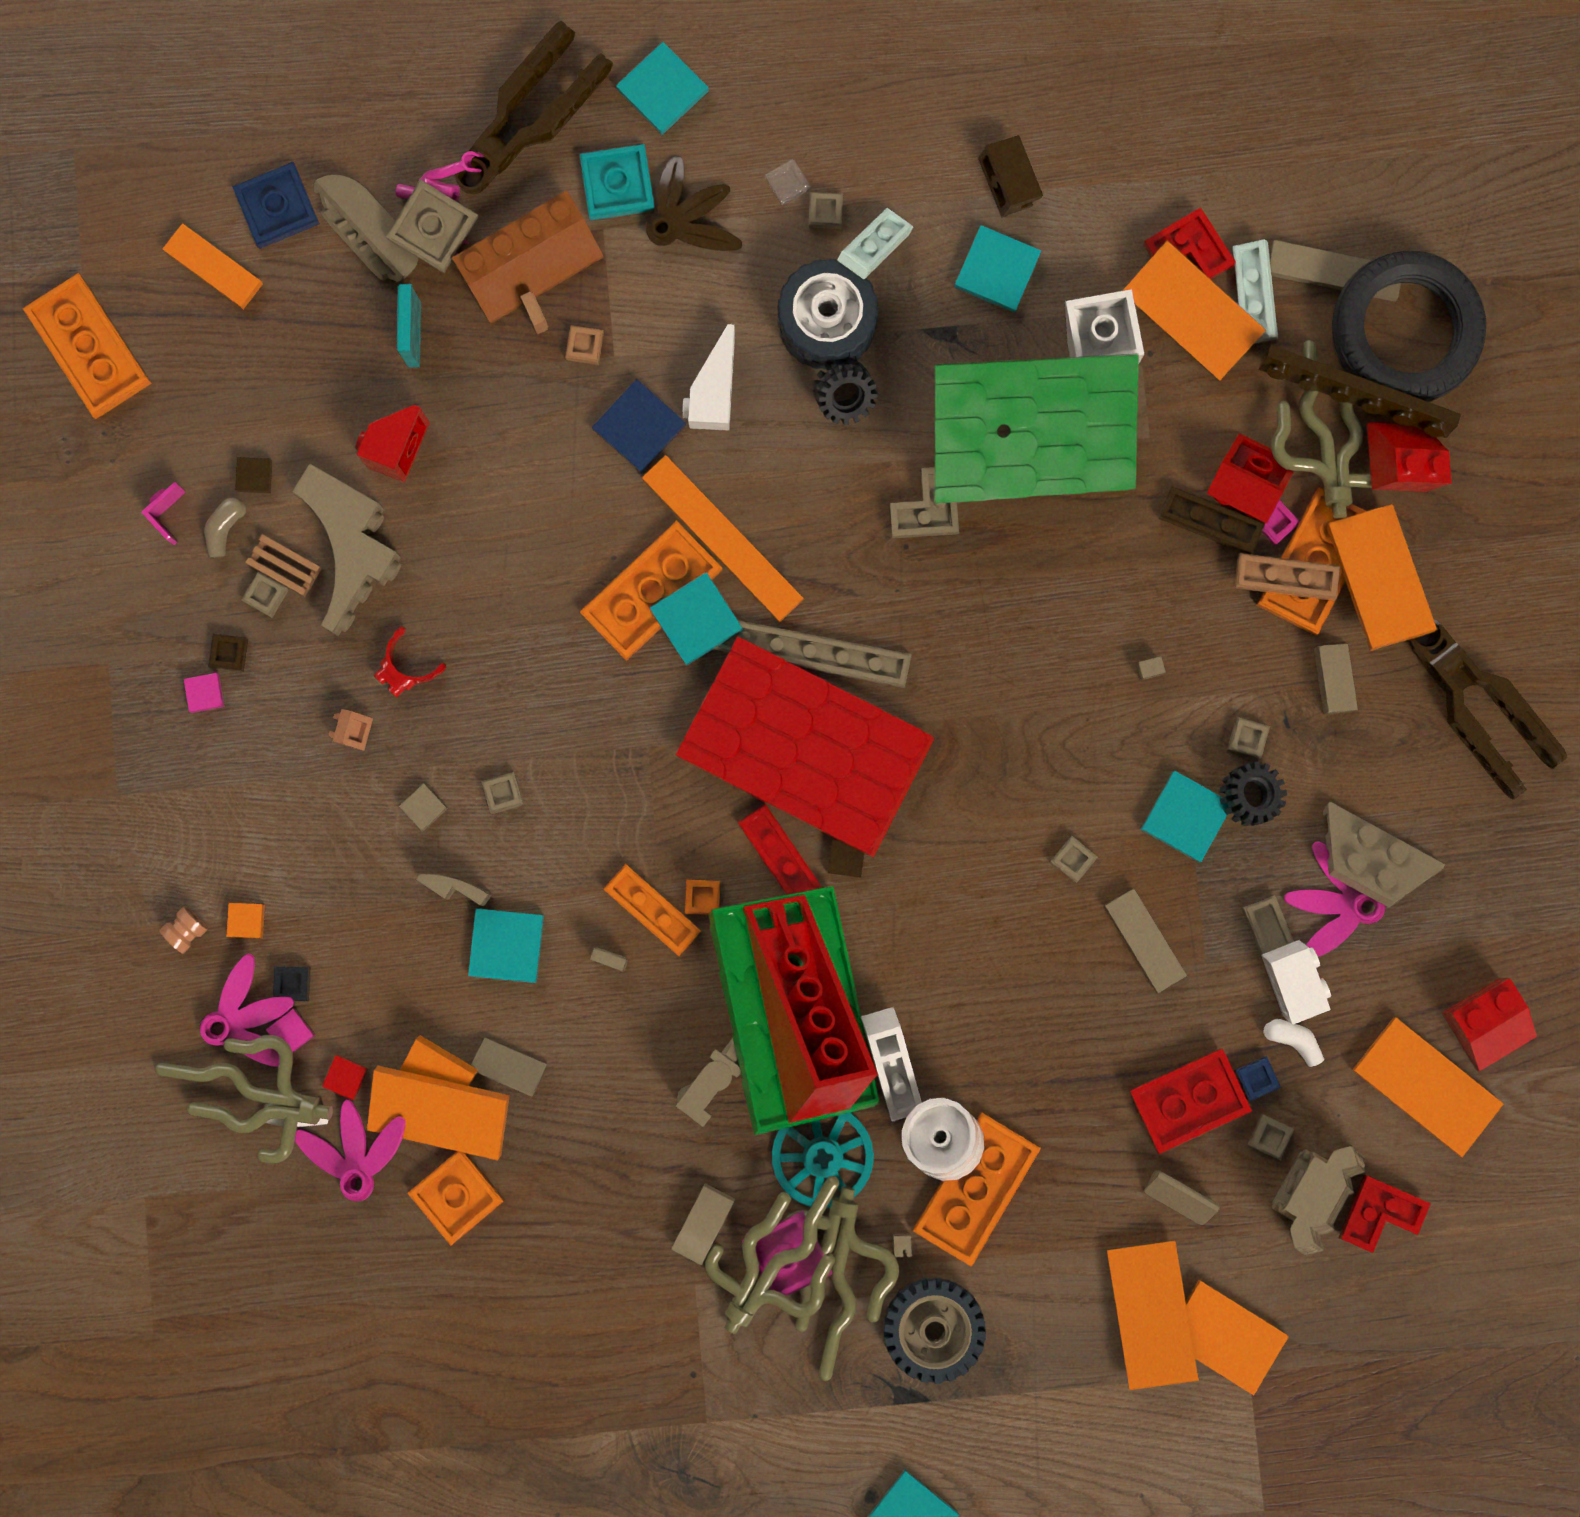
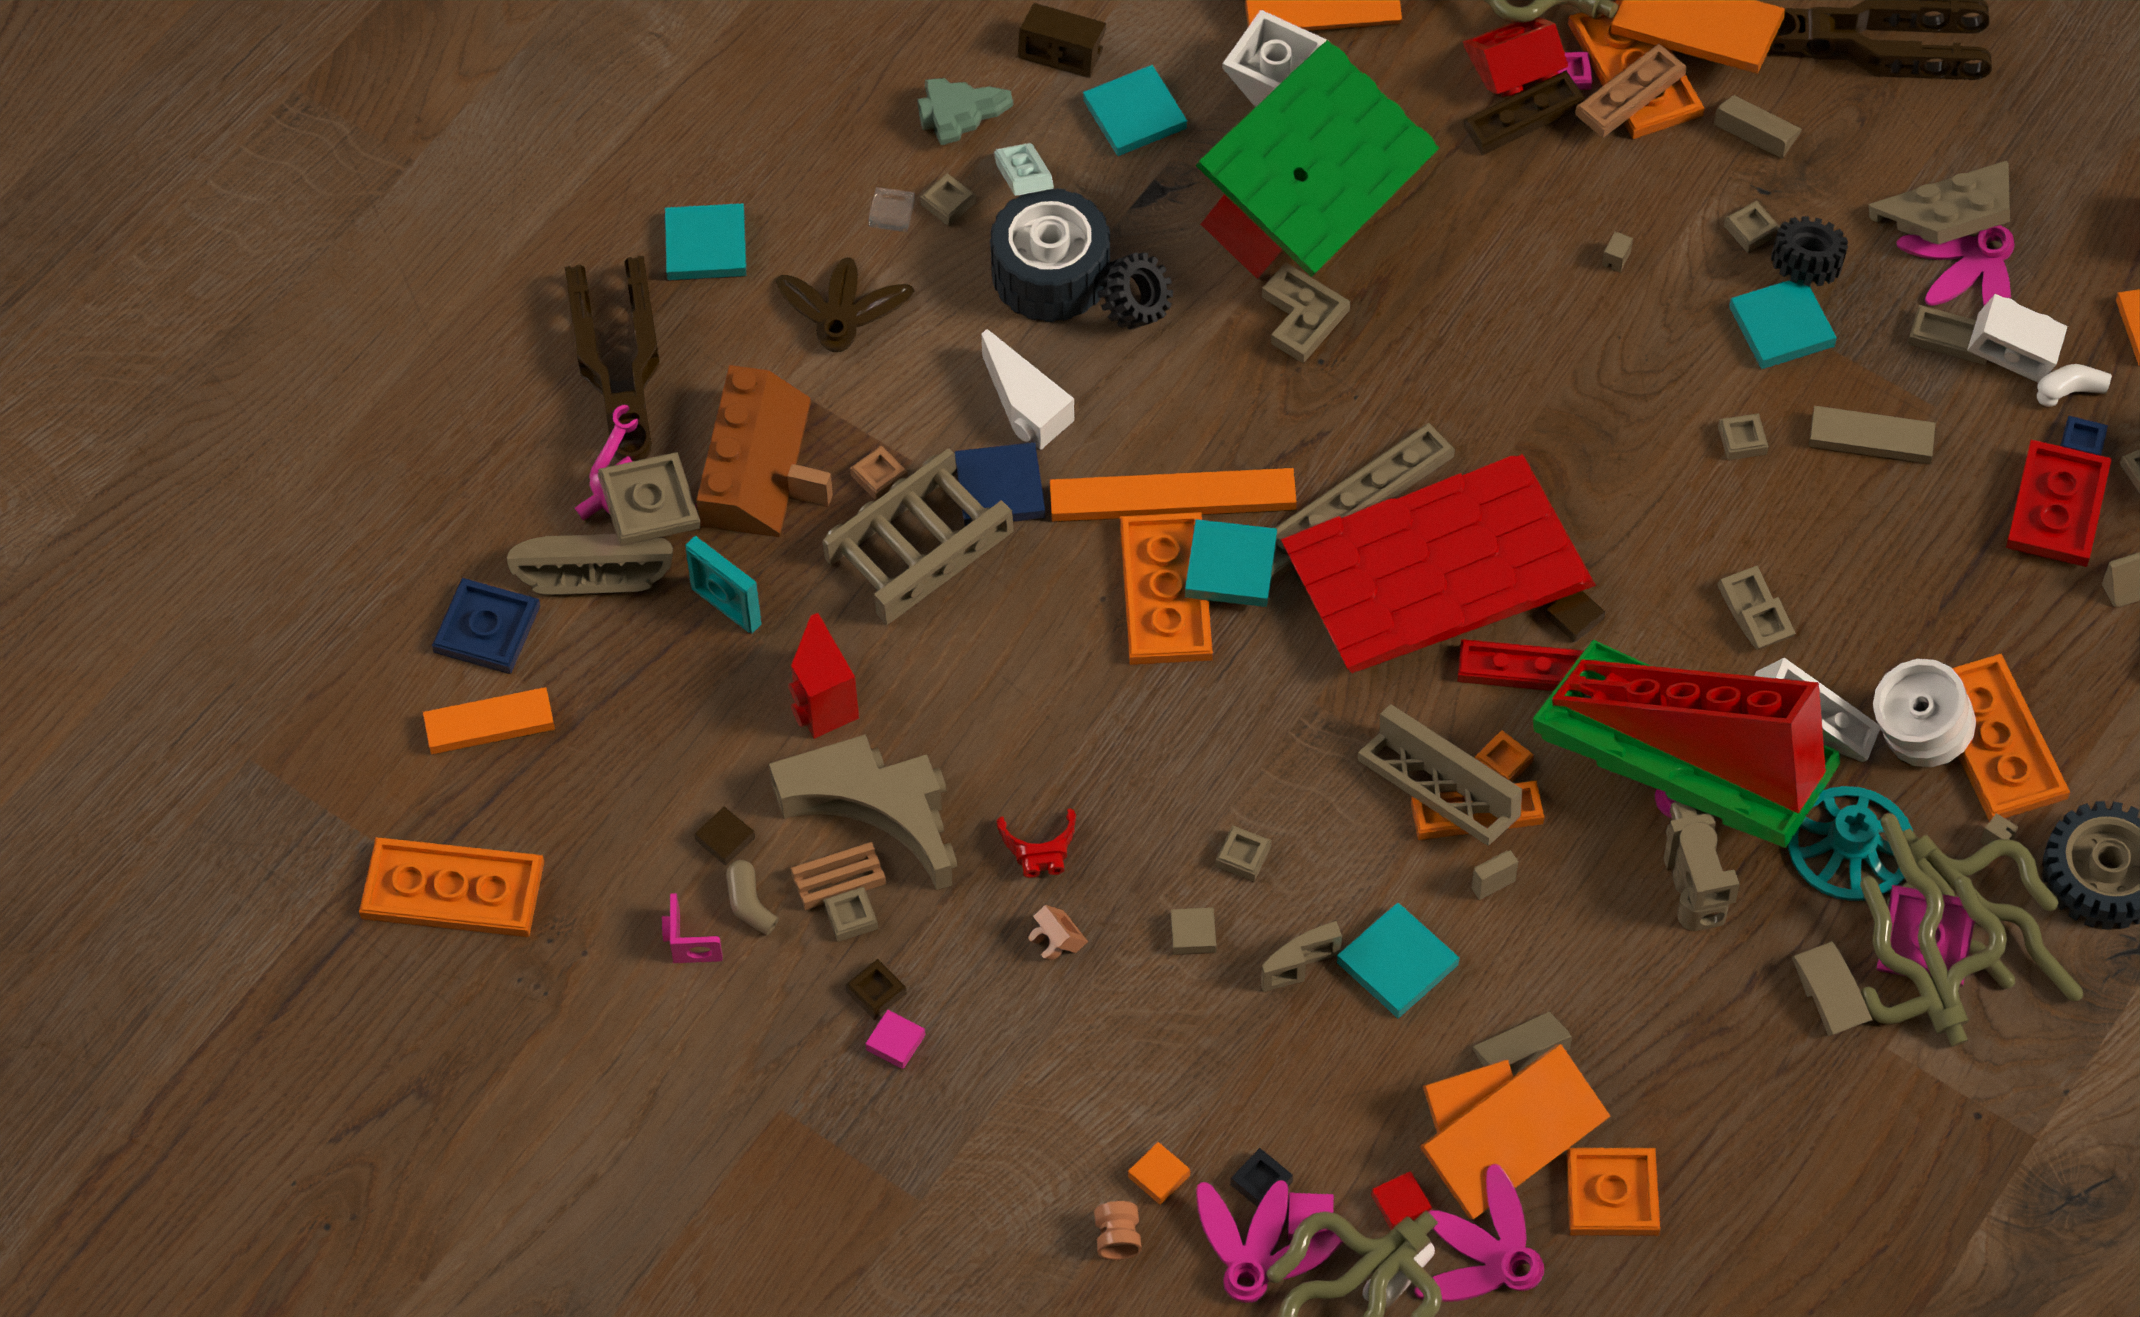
camera: 50 degrees left, 25 degrees down
(564, 440) = (925, 571): none -> dark tan fence
(617, 182) = (754, 335): teal tile -> none
(659, 874) = (1454, 768): none -> dark tan fence
(899, 157) = (959, 107): none -> sand green rock
(945, 968) = (1755, 609): none -> dark tan slope

